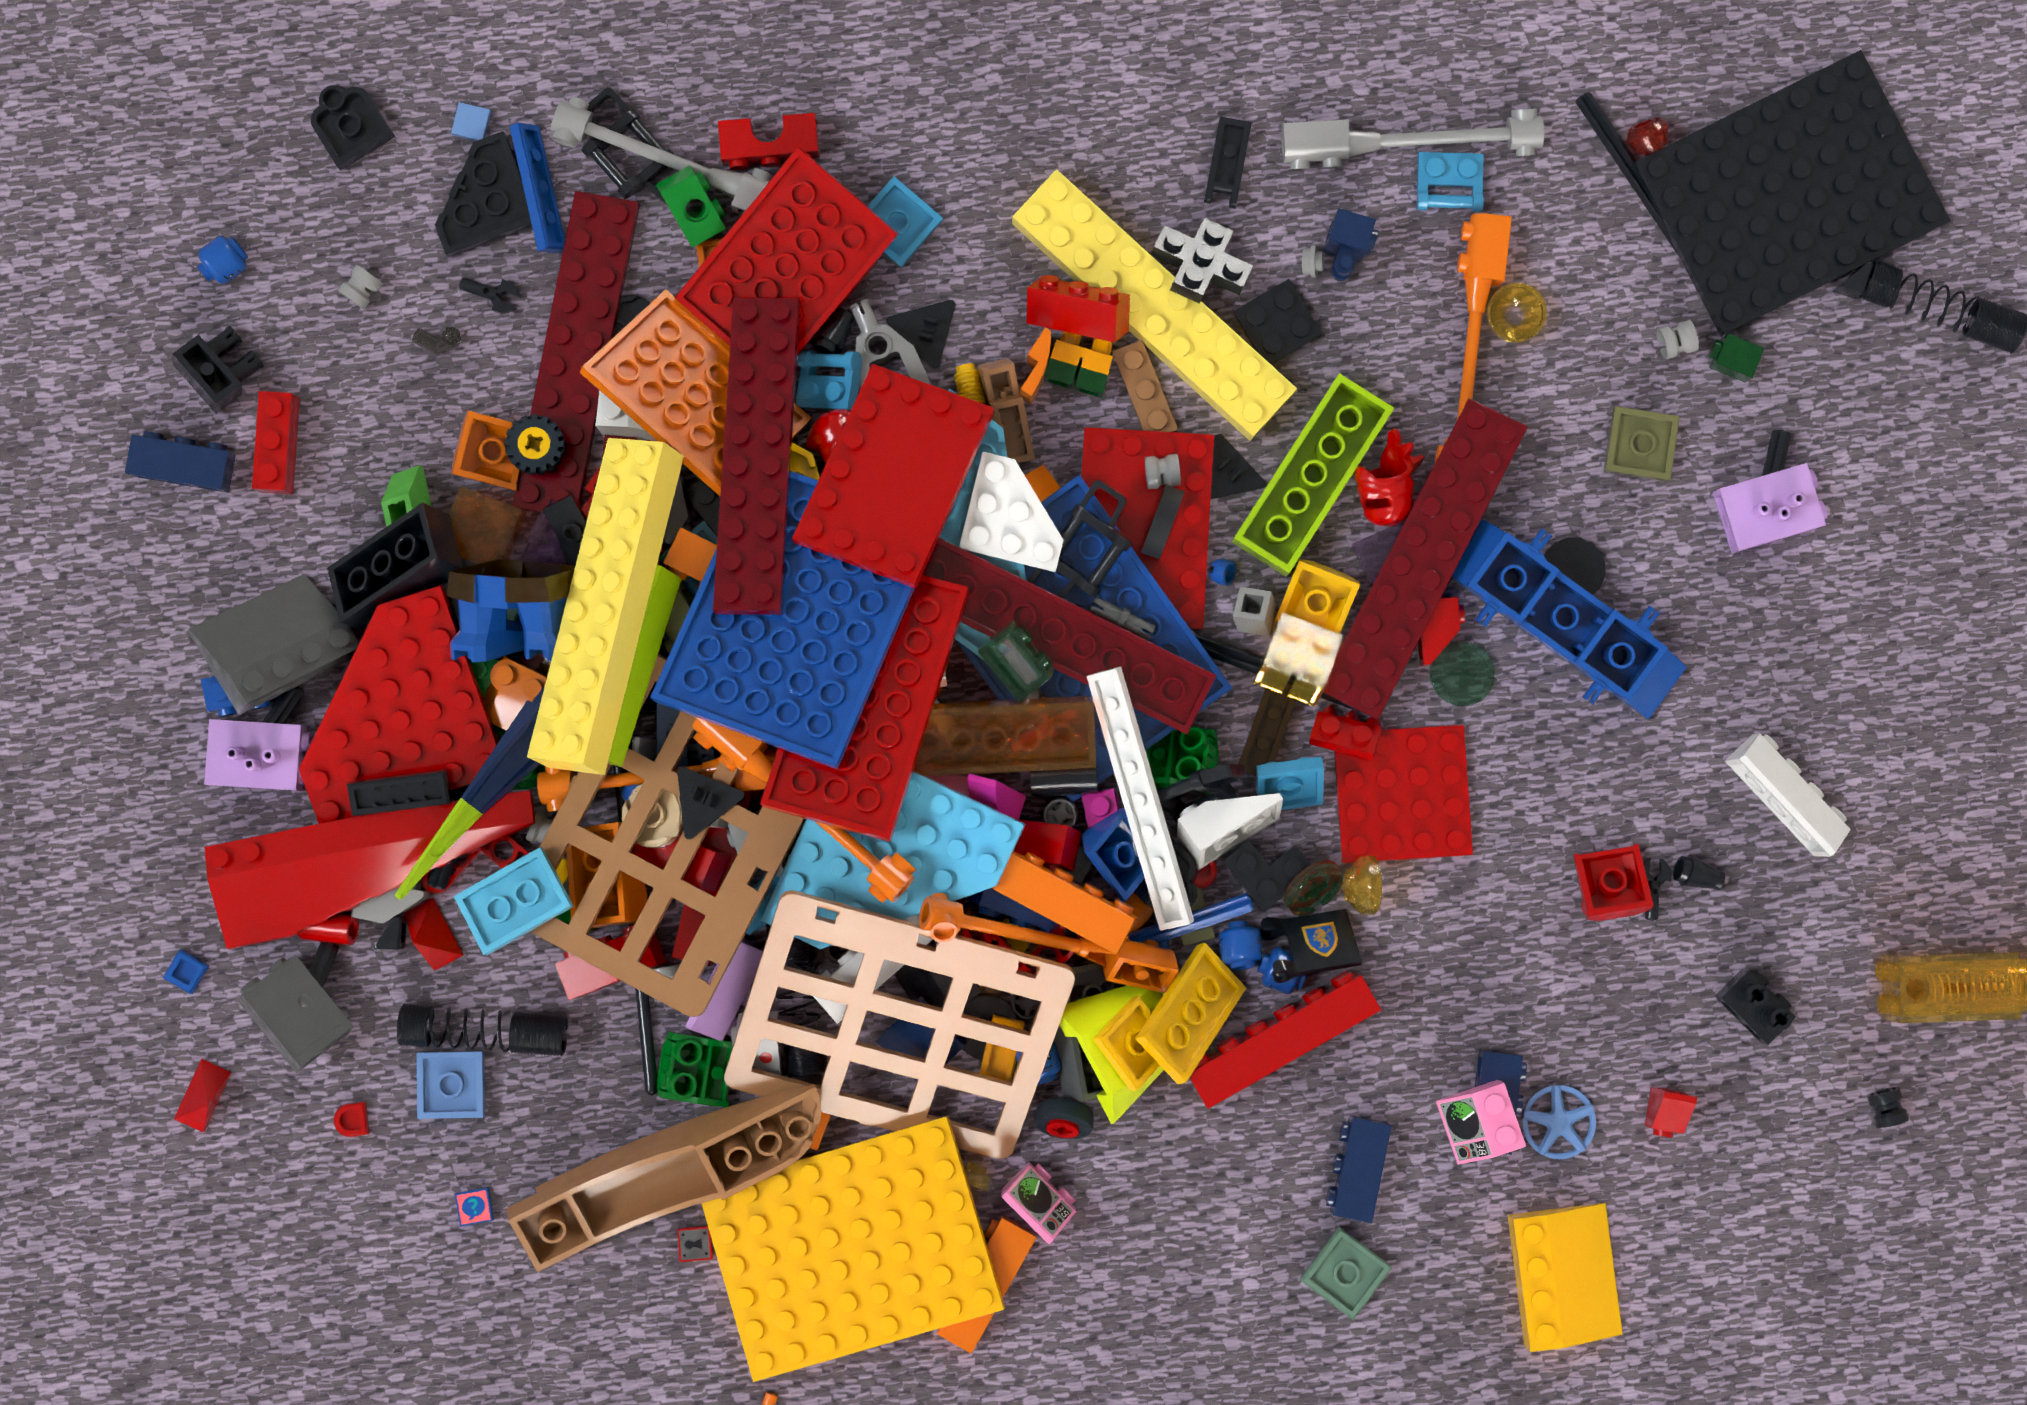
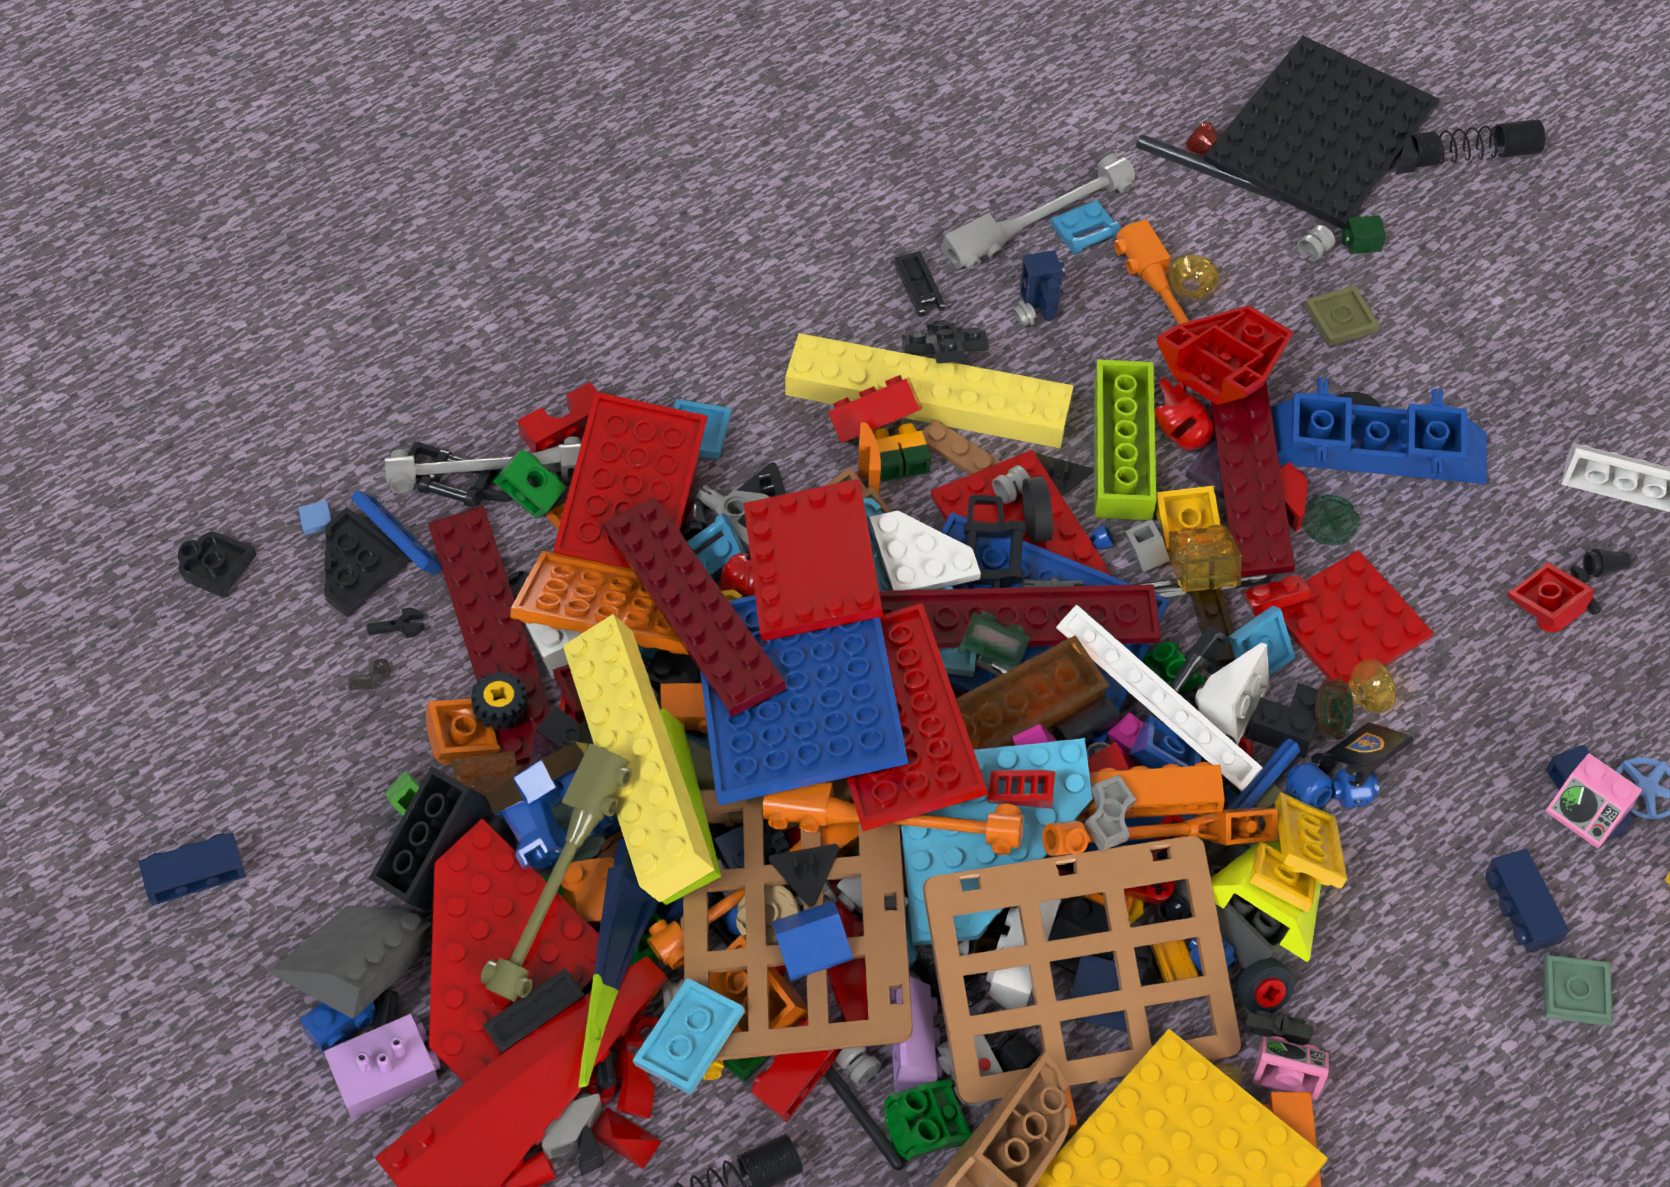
camera: 30 degrees left, 30 degrees down
(208, 375) = (185, 785): black brick -> none
(222, 259) = (153, 702): blue head -> none
(275, 442) = (271, 811): red brick -> none
(360, 286) = (284, 666): light grey wheel -> none
(449, 910) = (636, 1088): none -> red slope
(529, 644) = (590, 799): none -> olive bar
(666, 873) = (812, 940): none -> blue slope
(939, 834) = (1022, 776): none -> red slope
(990, 922) = (1108, 823): none -> light grey tile
(1050, 1160) = (1289, 1028): none -> pearl dark grey plate
(1277, 322) = (1028, 358): black plate -> none
(1283, 1038) = (1391, 828): red brick -> none
(1467, 451) = (1225, 352): none -> red wedge
(1771, 505) = (1459, 308): lavender piece -> none

